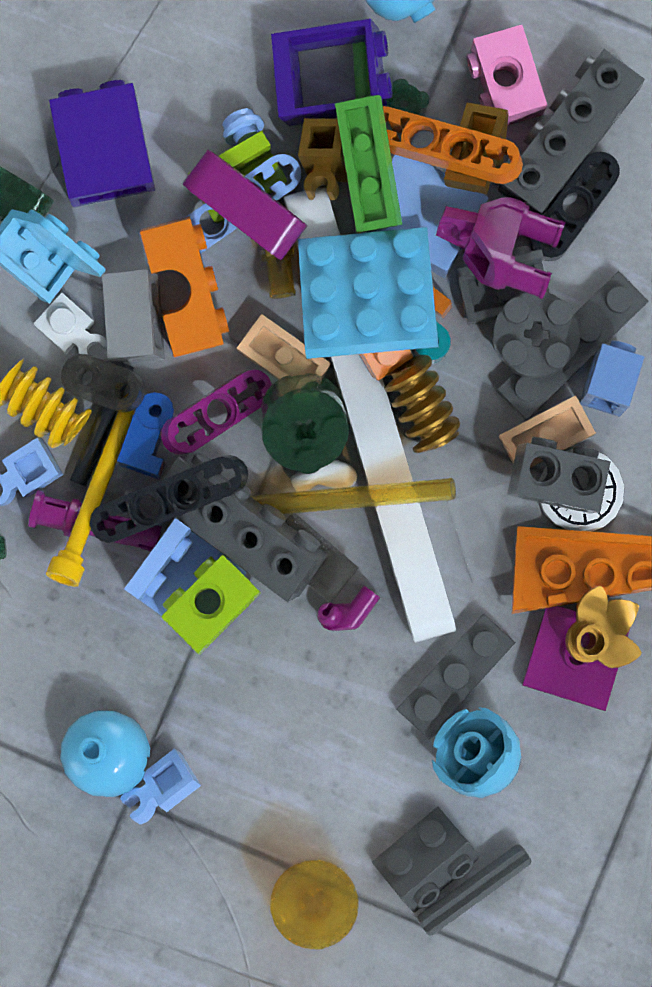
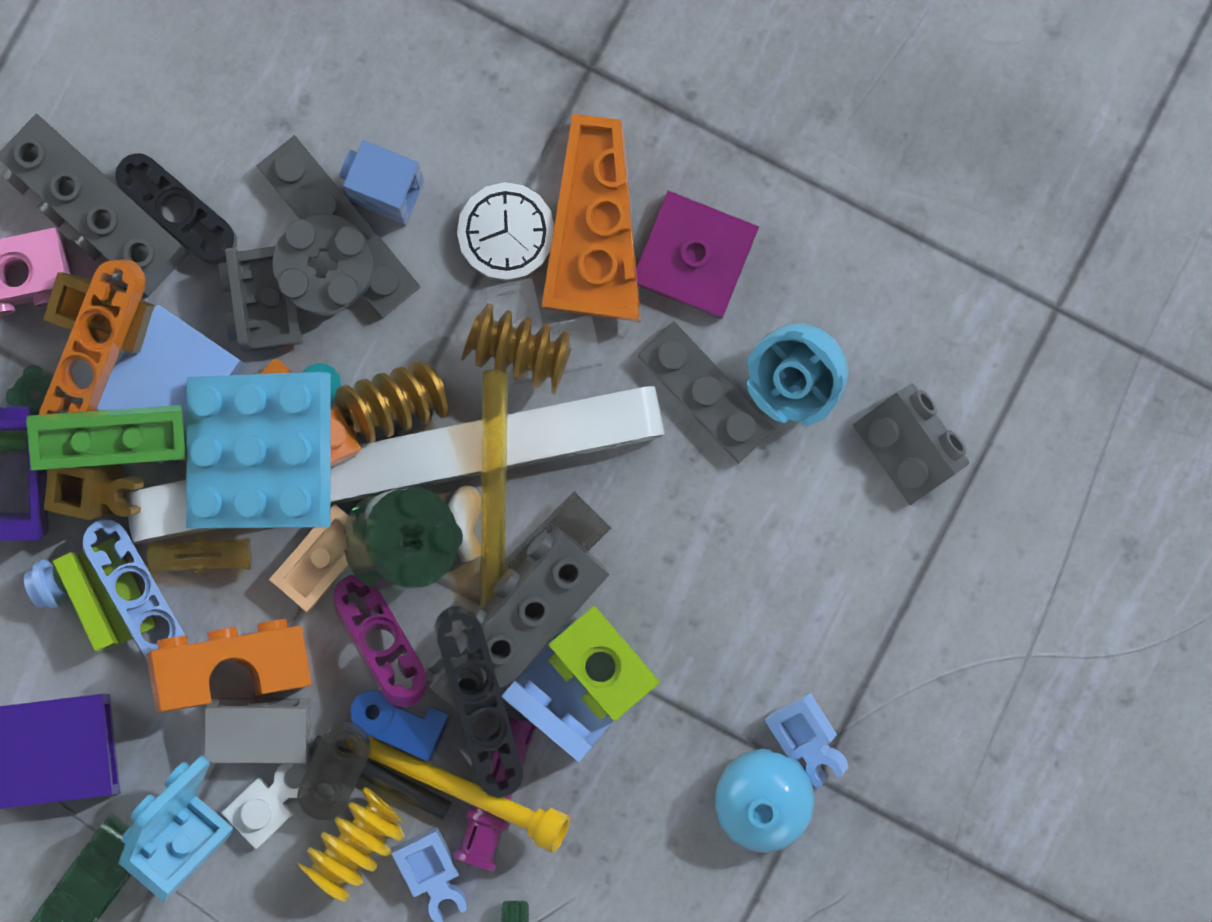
camera: 90 degrees left, 0 degrees up
(244, 204) = (139, 587): magenta beam -> none
(317, 928) = (981, 572): clear yellow brick -> none
(347, 615) = (627, 508): magenta arm -> none
(474, 890) = (949, 392): dark grey axle -> none
(477, 507) = (518, 347): none -> pearl gold piece
(490, 241) = (211, 303): magenta connector -> none
(558, 486) = (498, 254): dark grey brick -> none
(562, 423) = (438, 263): light nougat plate -> none
(607, 625) = (665, 215): pearl gold plate -> none

